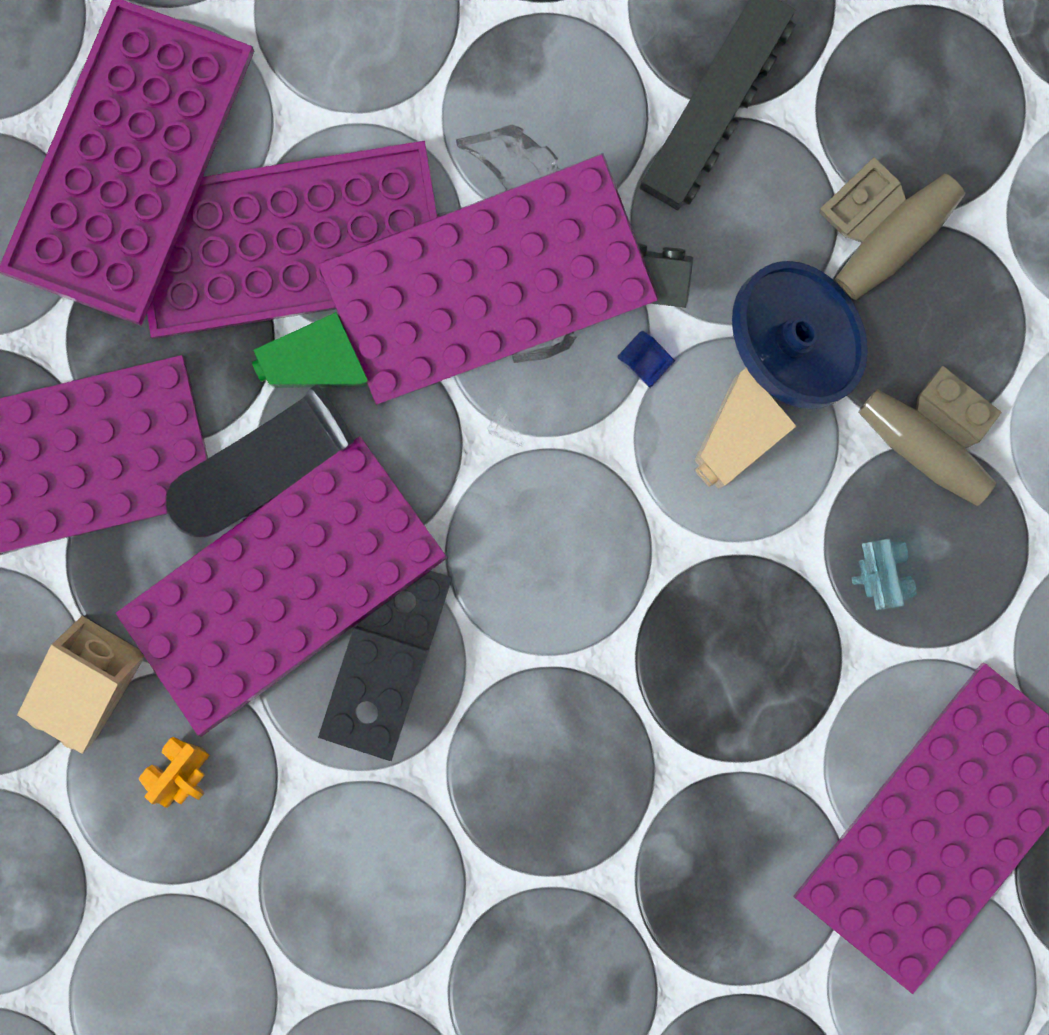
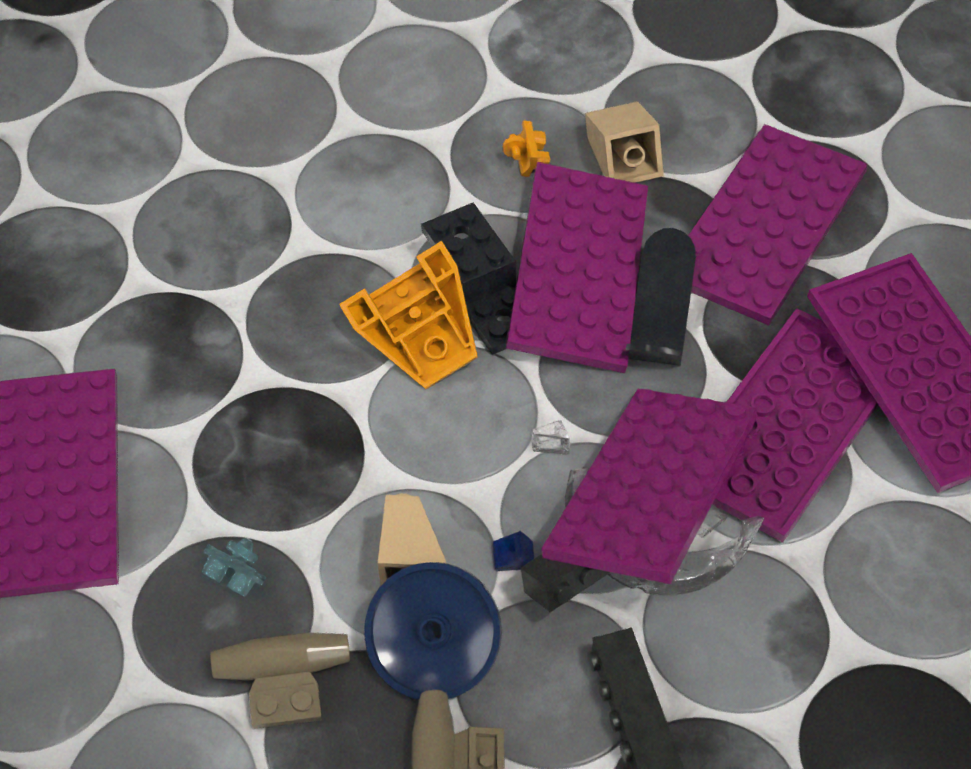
camera: 135 degrees right, 35 degrees down
(311, 356) = (701, 370): green slope -> none
(491, 670) = (418, 318): none -> light orange wedge

